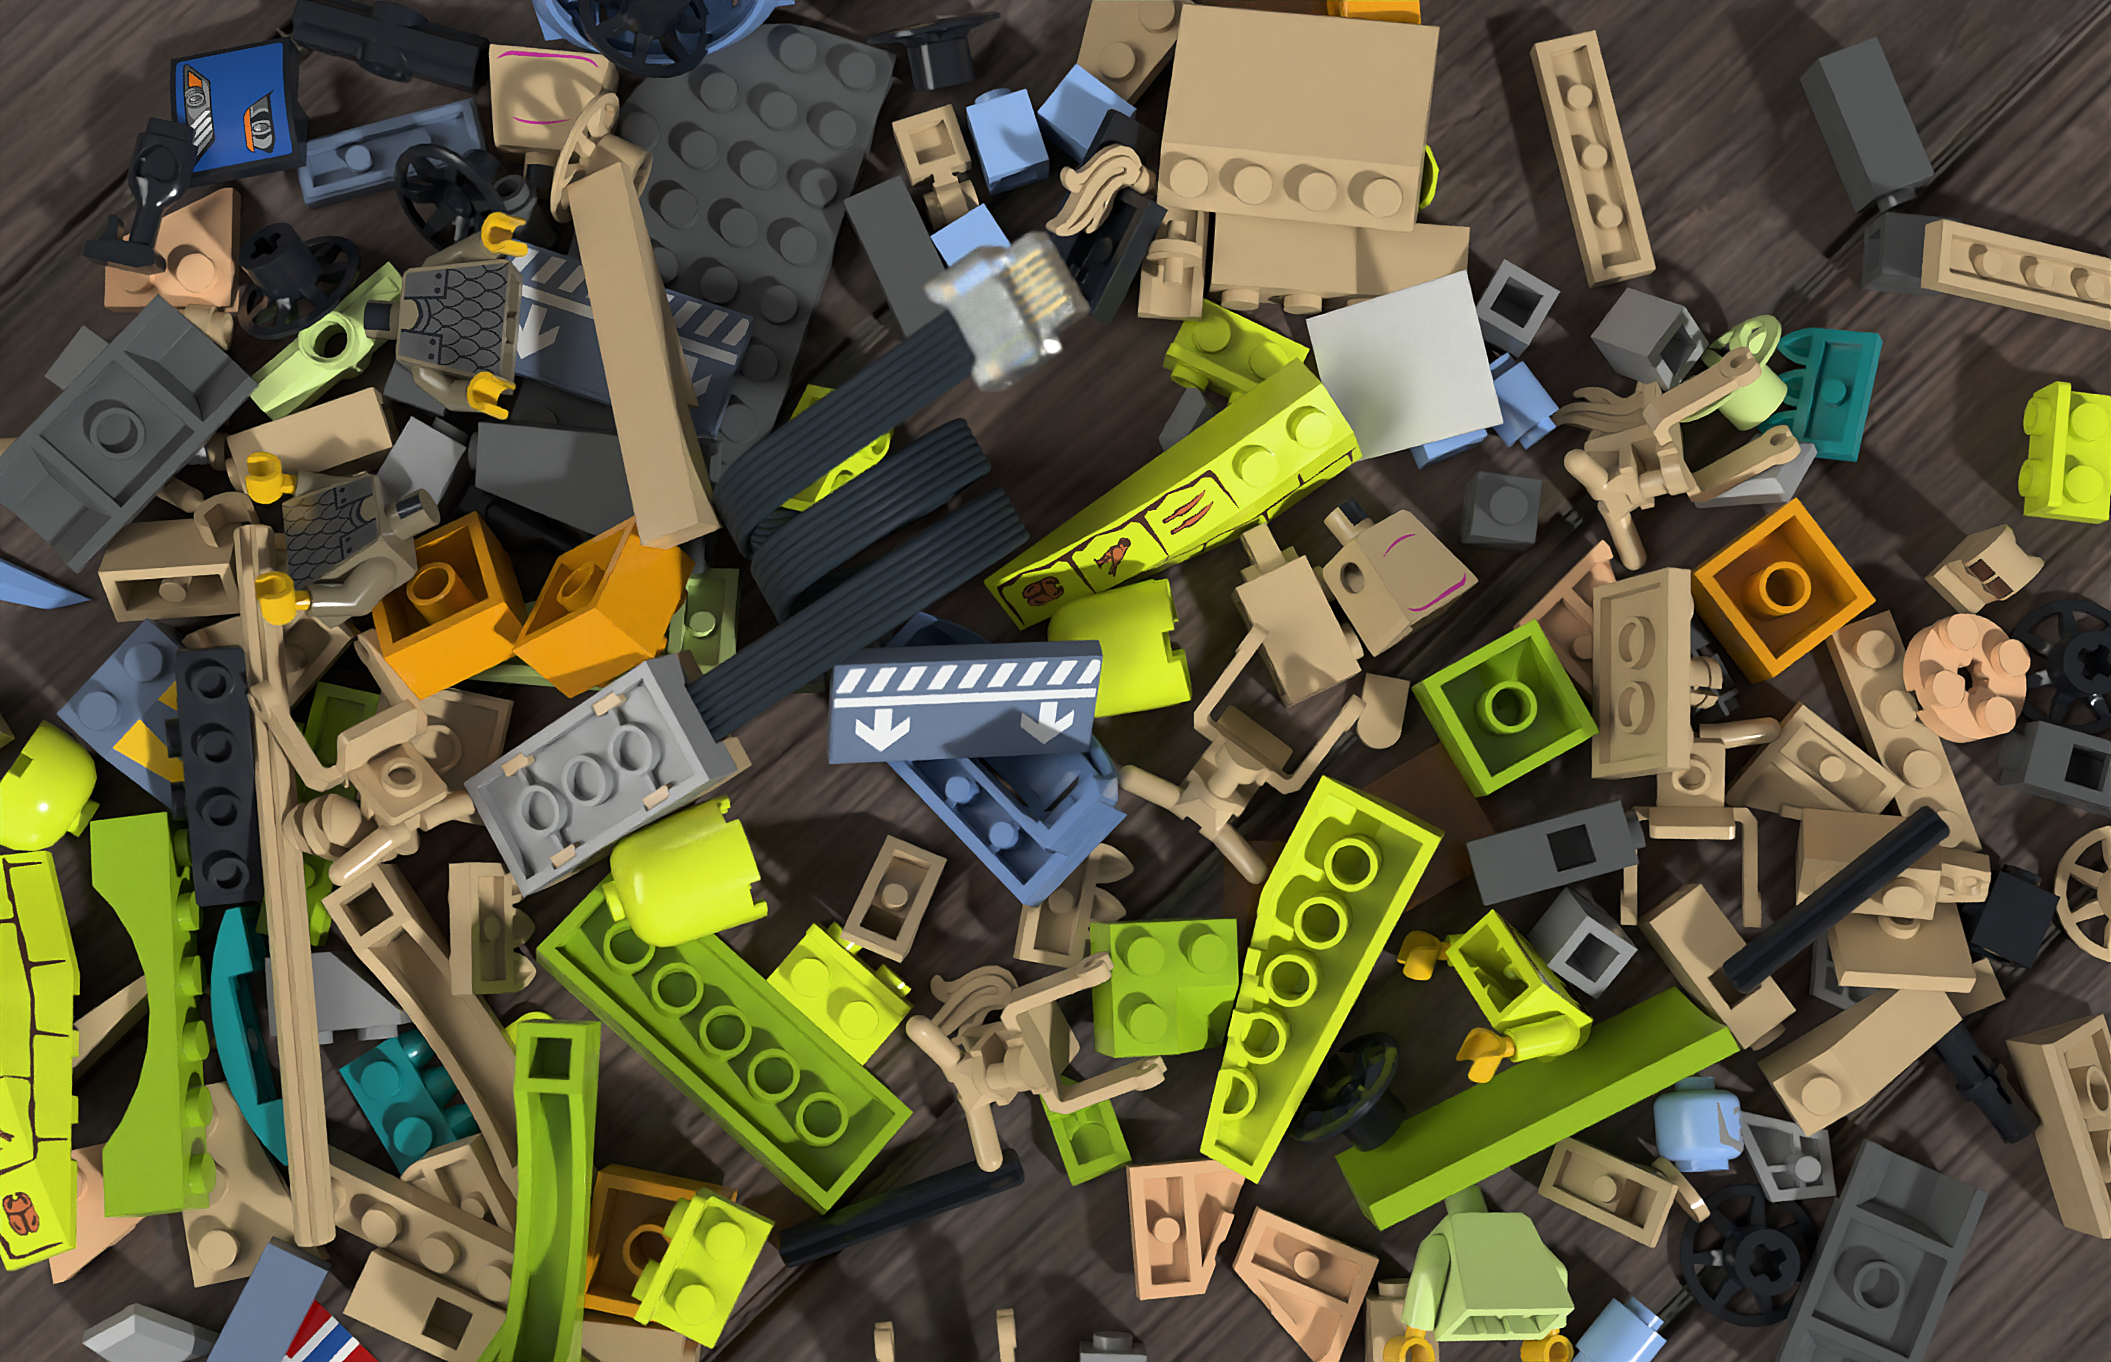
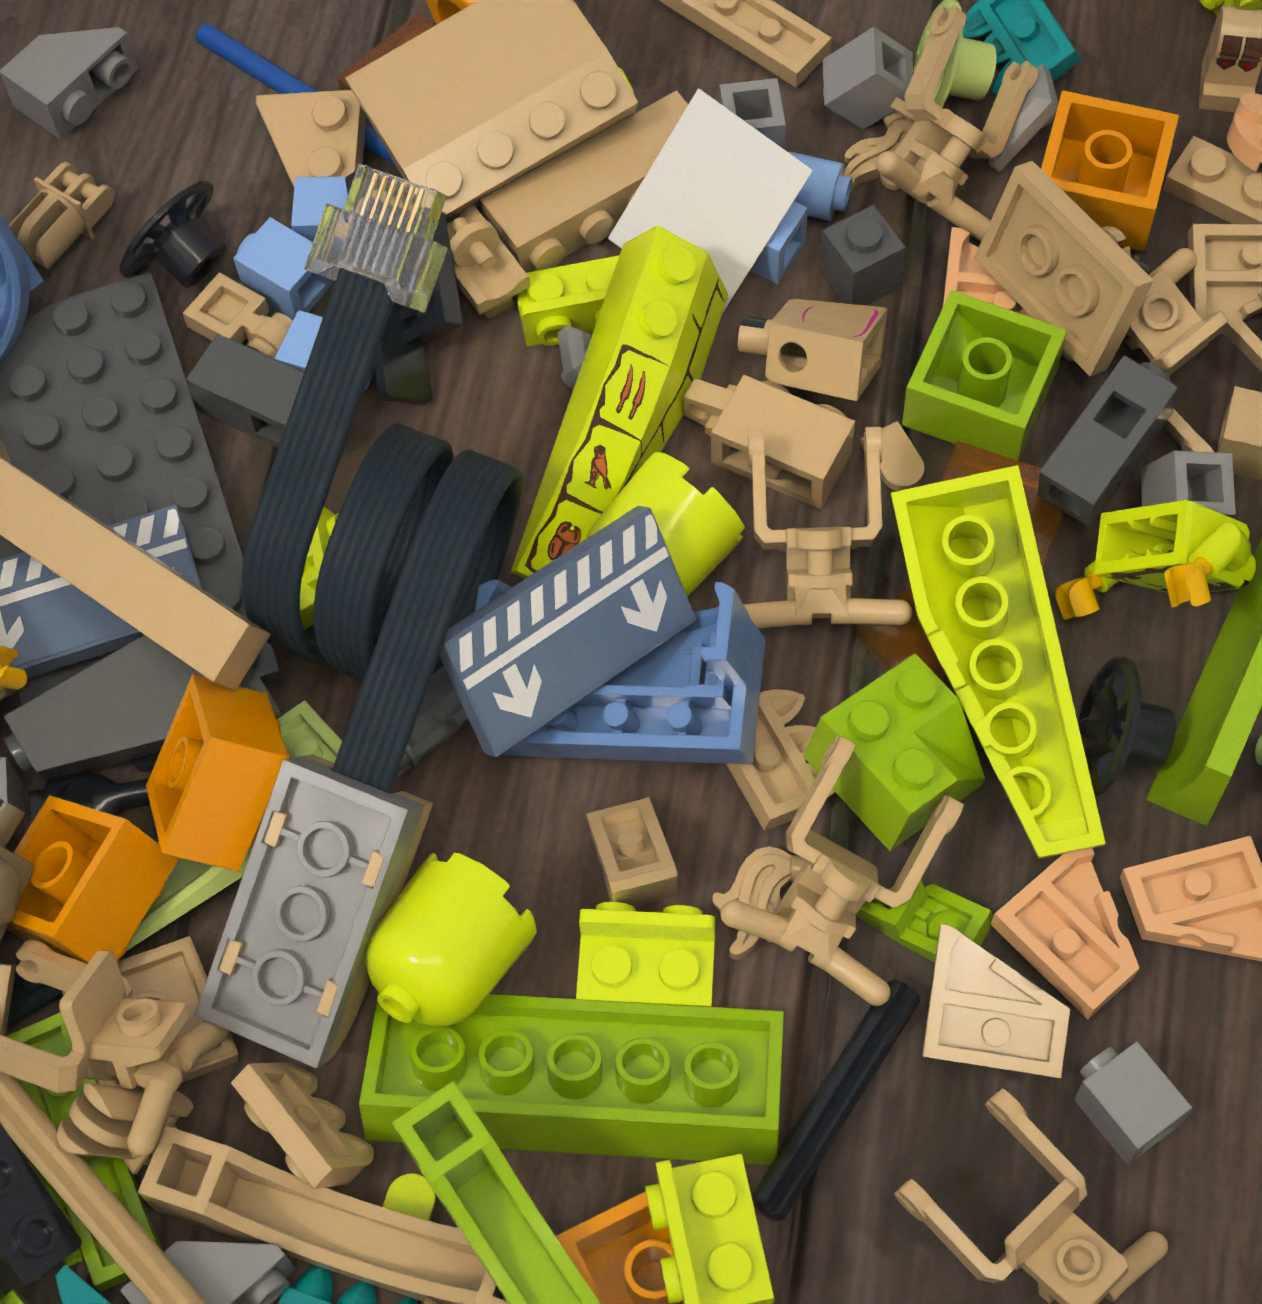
camera: 30 degrees left, 20 degrees down
(1064, 1239) = (990, 1012): none -> tan wing

